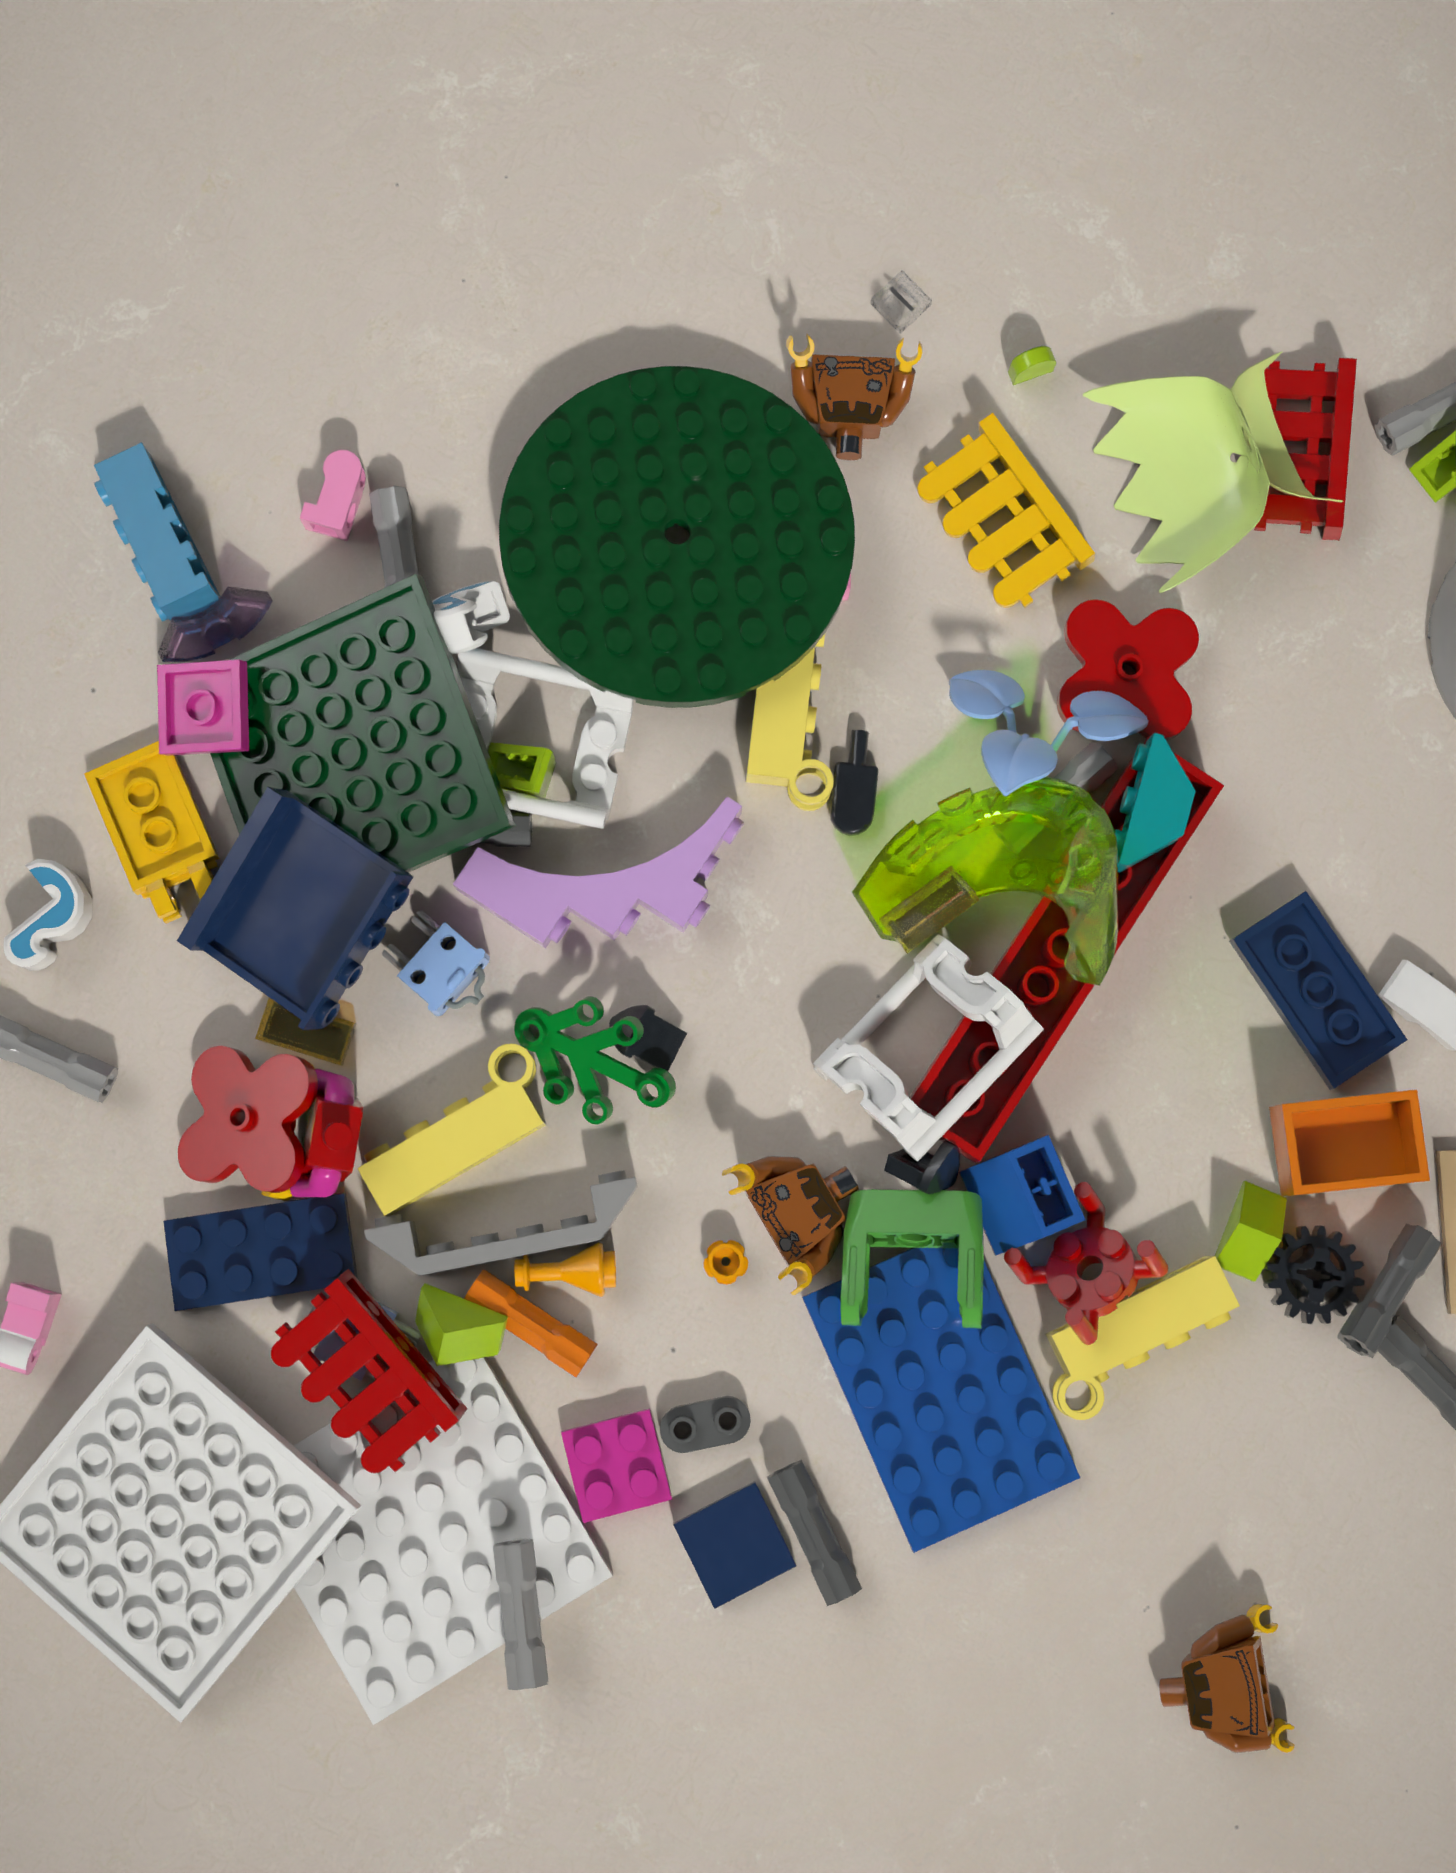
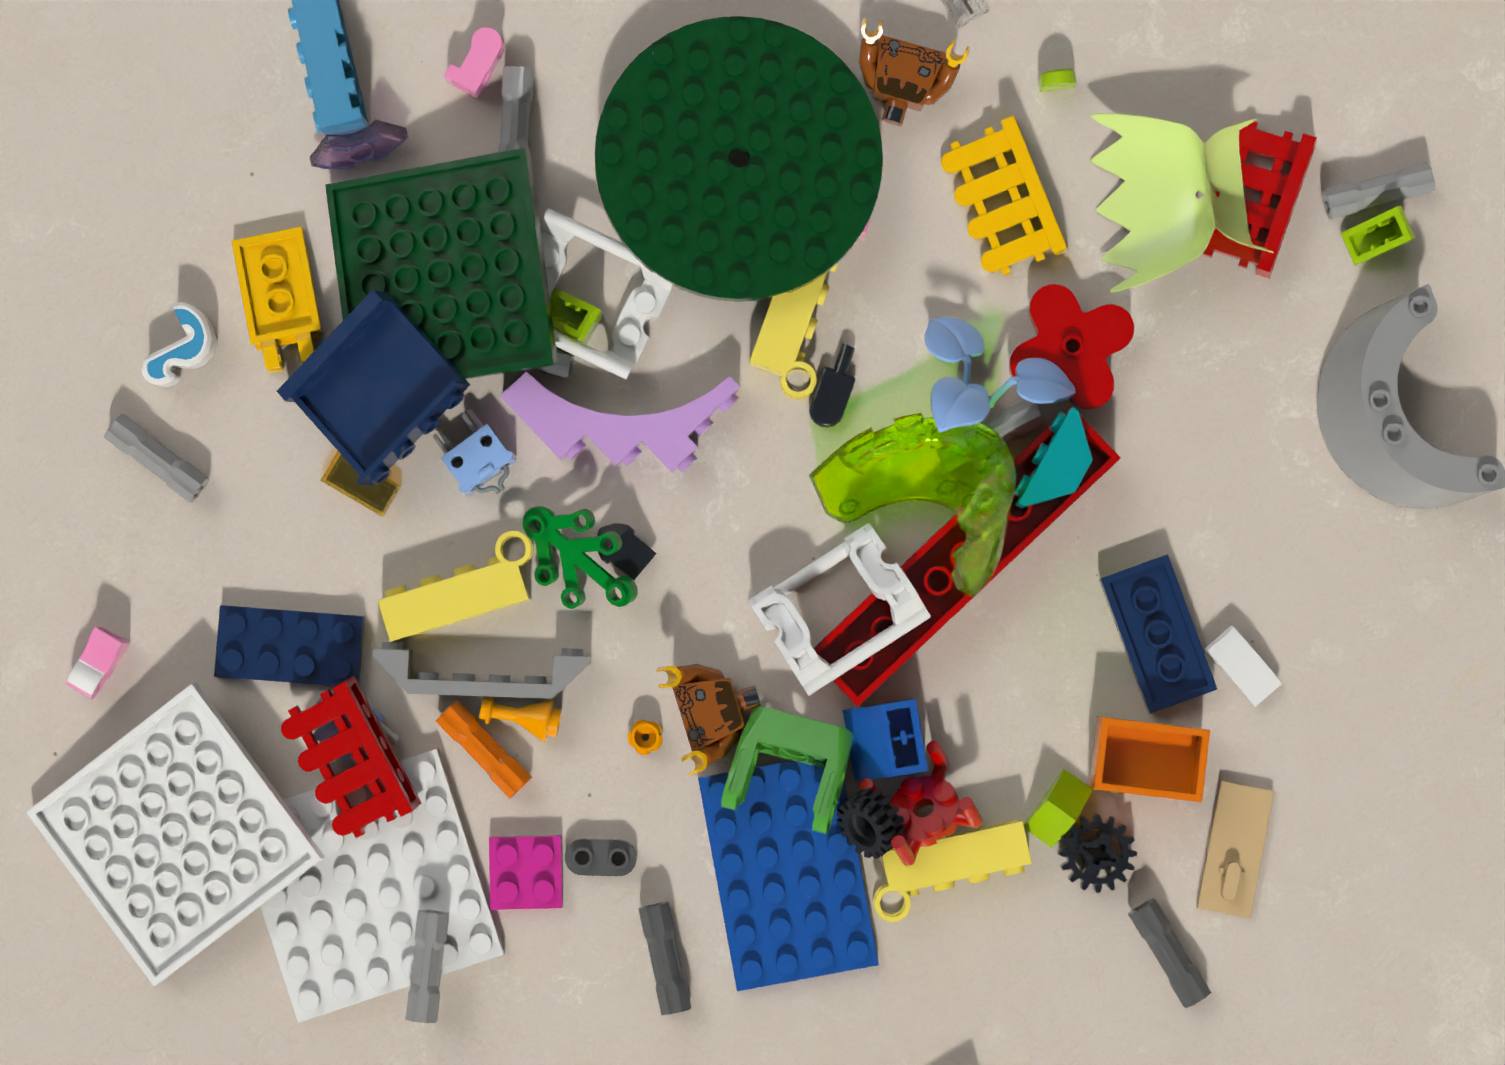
camera: 15 degrees right, 5 degrees up
(203, 707) = (335, 211): dark pink plate -> none
(248, 1119) = (301, 542): plant -> none
(328, 1138) = (361, 569): torso -> none
(457, 1327) = (427, 740): lime slope -> none
(468, 613) = (558, 181): white animal -> none
(734, 1544) = (602, 953): dark blue tile -> none
(929, 909) = (866, 501): clear yellow tile -> none
(931, 1172) = (818, 706): black tile -> none
(1038, 1285) = (870, 822): none -> black tyre
(1373, 1316) = (1132, 896): dark grey axle -> none

